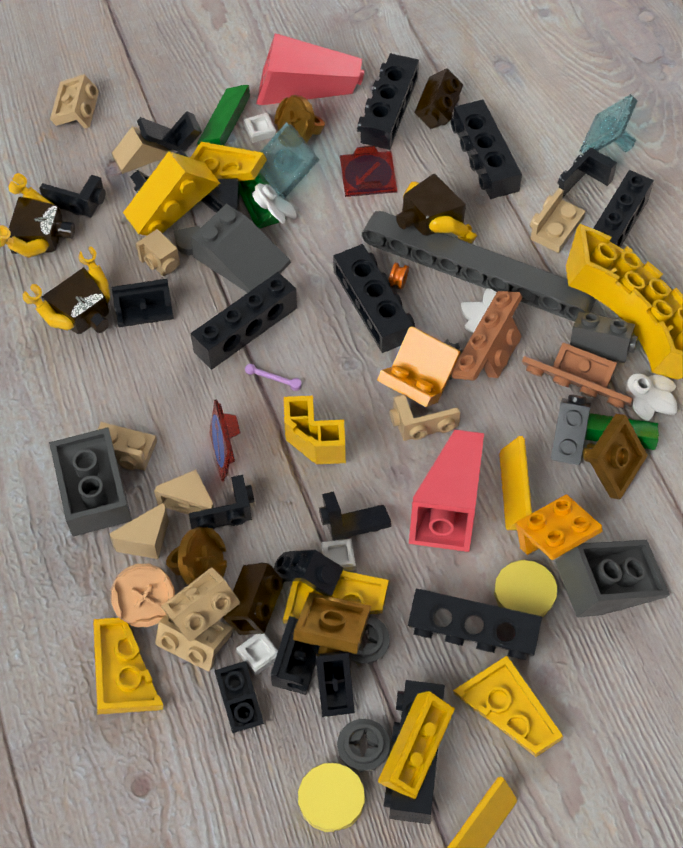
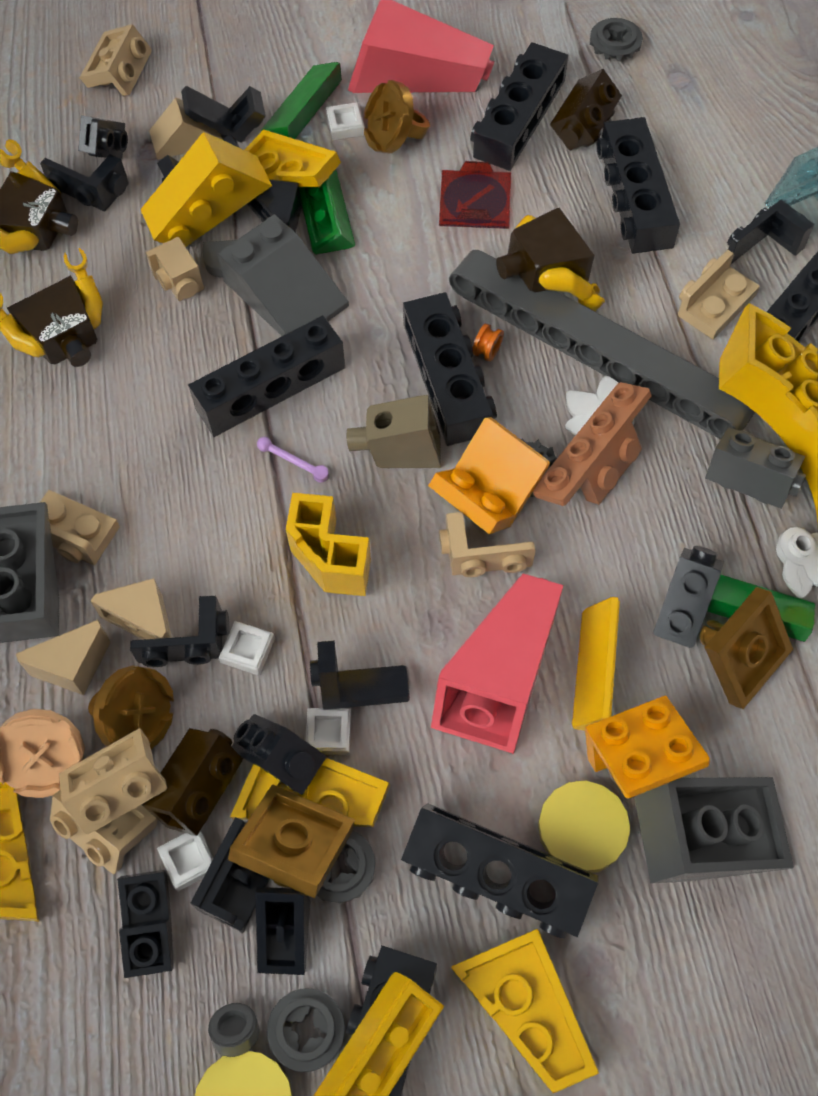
camera: 10 degrees right, 5 degrees up
(79, 162) = (102, 137): none -> black bracket
(142, 303) = (140, 333): black hinge -> none
(222, 428) = (204, 529): clear red piece -> none
(268, 198) = (340, 220): white plate -> none
(268, 509) = (247, 648): none -> white tile
(287, 160) = (367, 166): clear light blue tile -> none
(315, 752) = (233, 1029): none -> dark grey tile
(349, 348) = (399, 434): none -> dark tan torso
(450, 34) = (617, 30): none -> dark grey gear
(583, 370) = (719, 510): nougat bracket -> none

